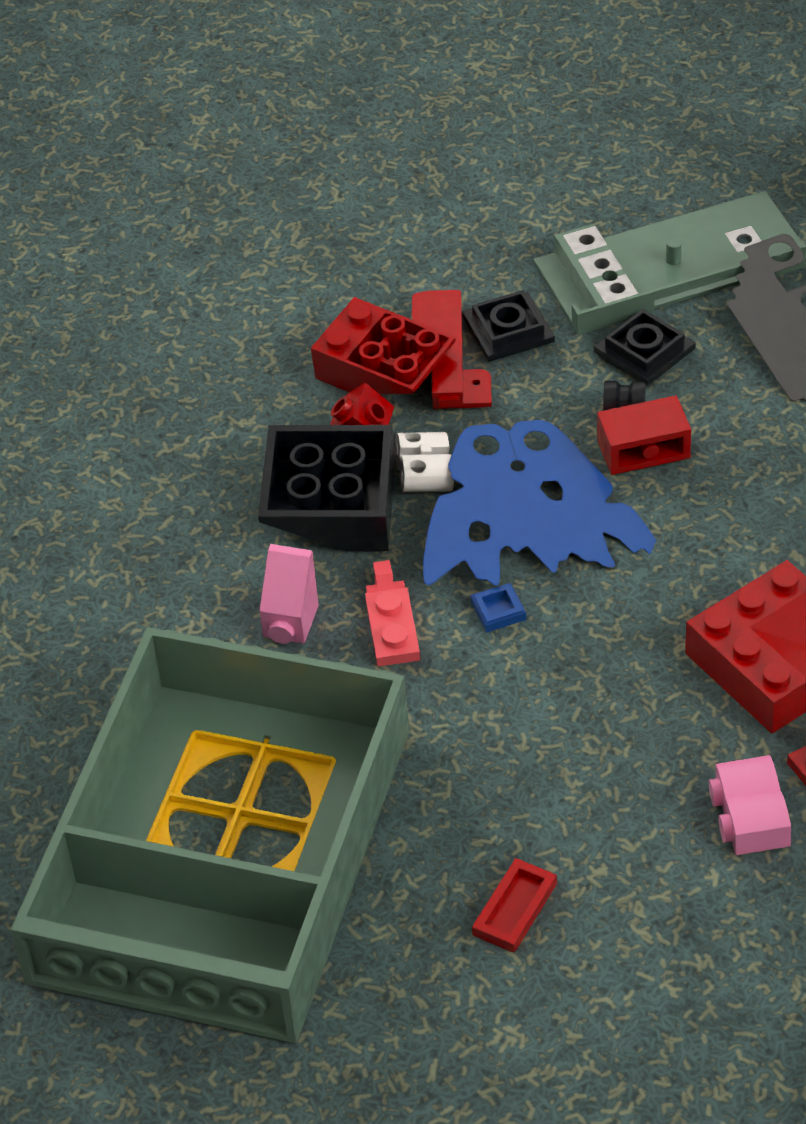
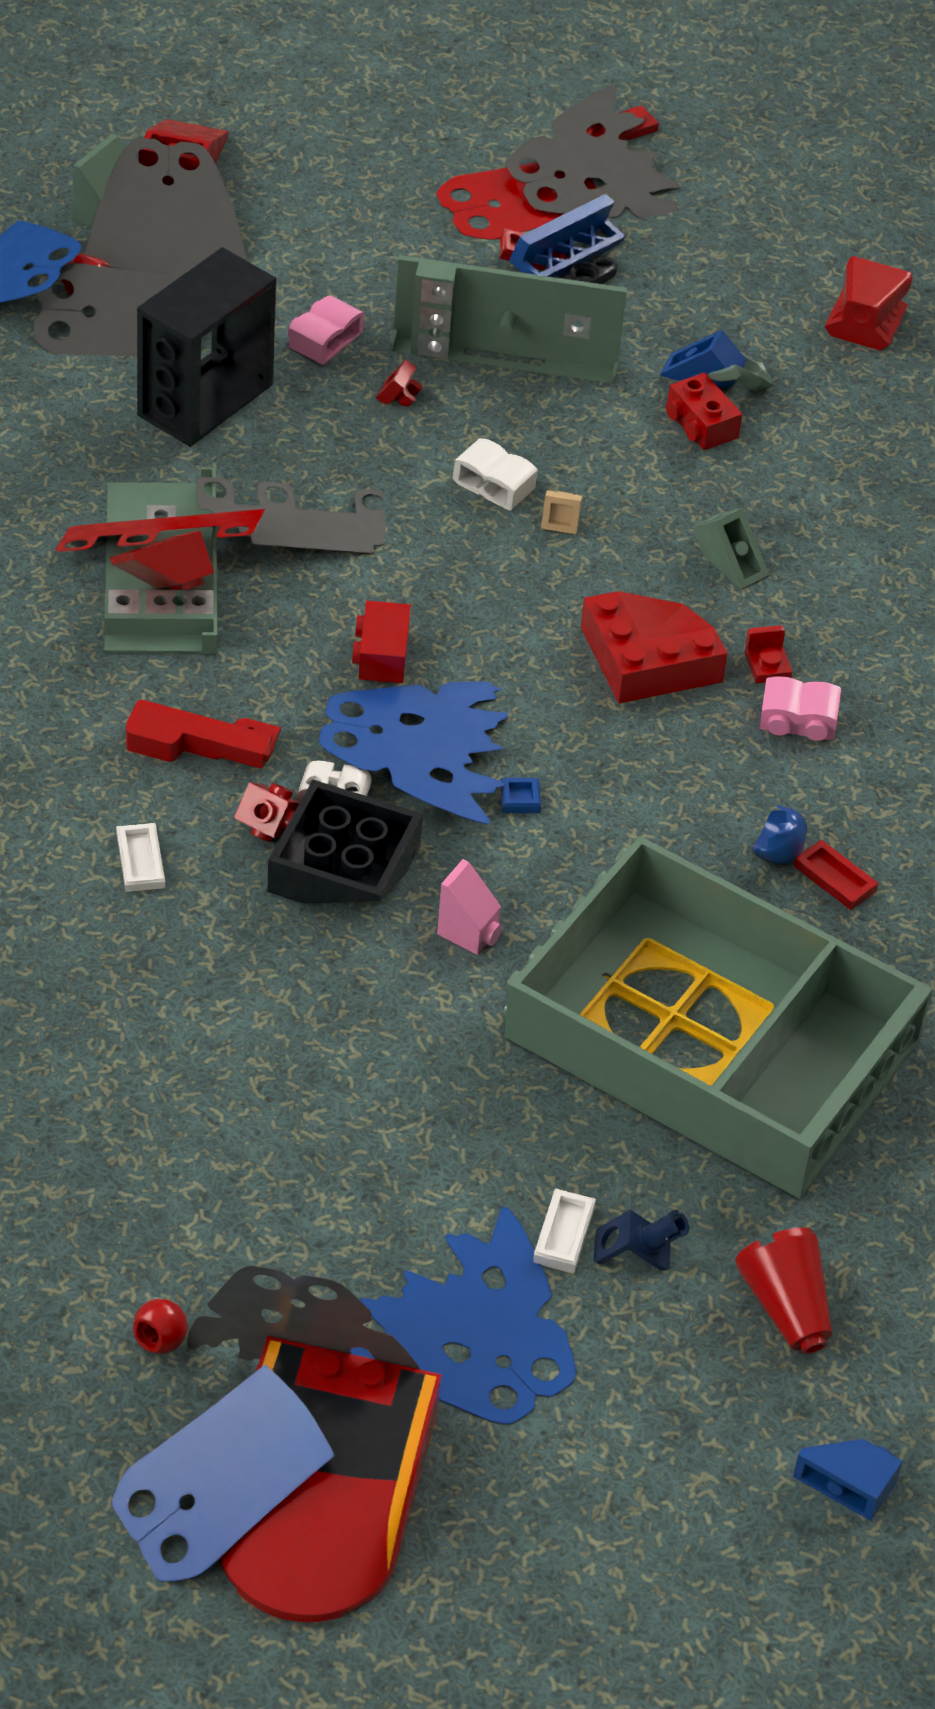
camera: 80 degrees left, 0 degrees up
(273, 362) = (140, 857): none -> white tile
(378, 350) = (192, 773): red slope -> none
(391, 618) = (501, 863): coral hinge -> none
(505, 339) = (201, 699): black piece -> none
(530, 835) = (782, 836): none -> blue hair
(622, 395) = (331, 643): black wheel -> none
(636, 243) = (171, 562): none -> red slope
(644, 361) = (264, 627): black piece -> none
(693, 215) = (152, 527): none -> red piece

